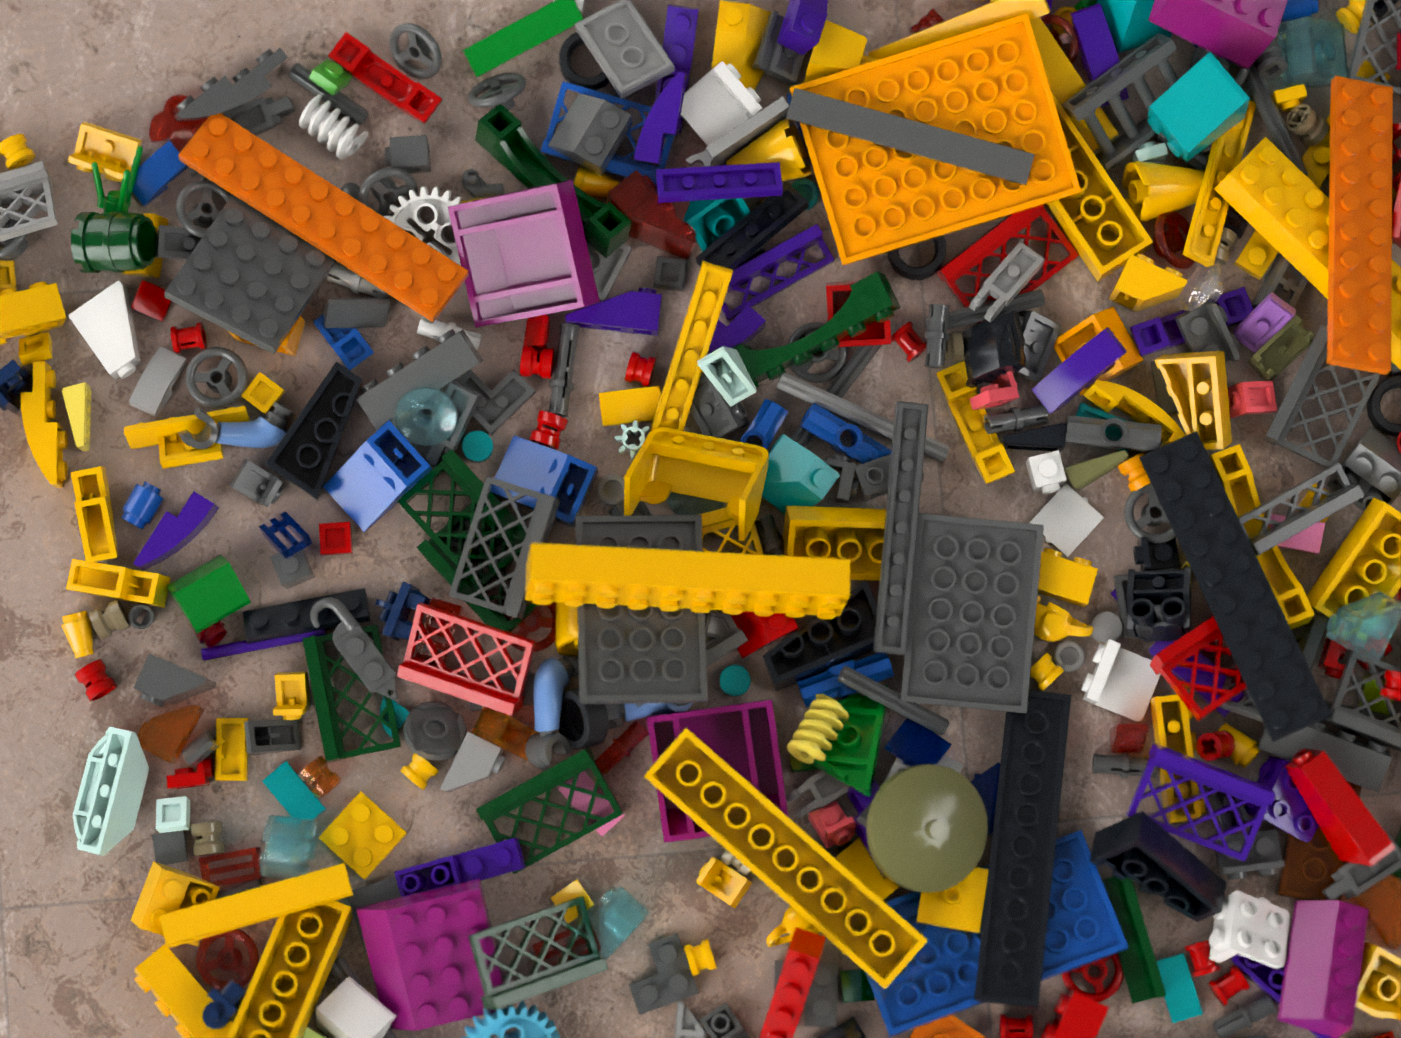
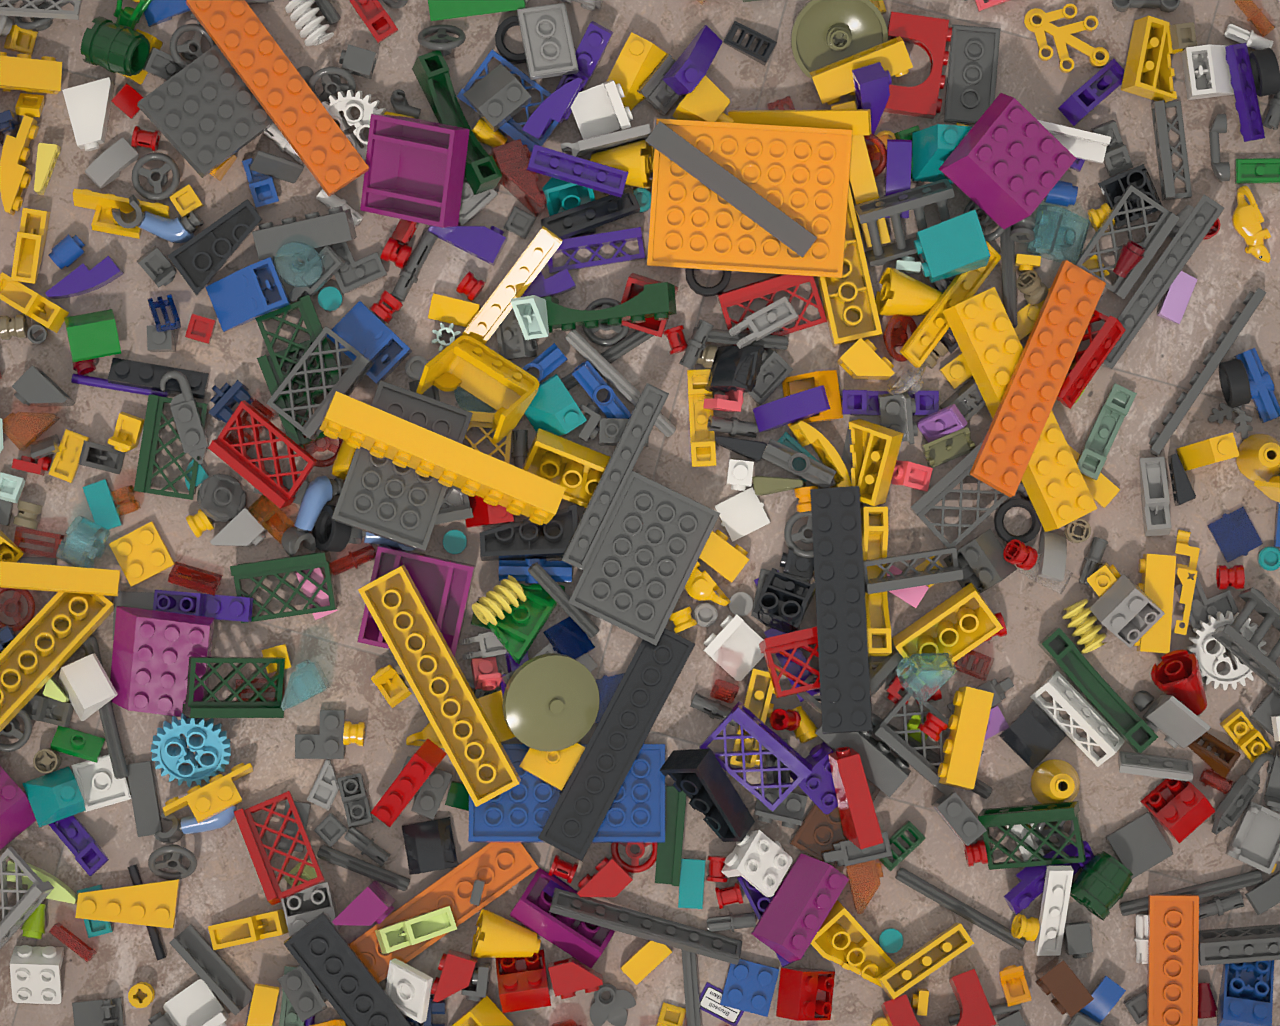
camera: 10 degrees right, 5 degrees up
(438, 840) = (195, 578): none -> clear red tile

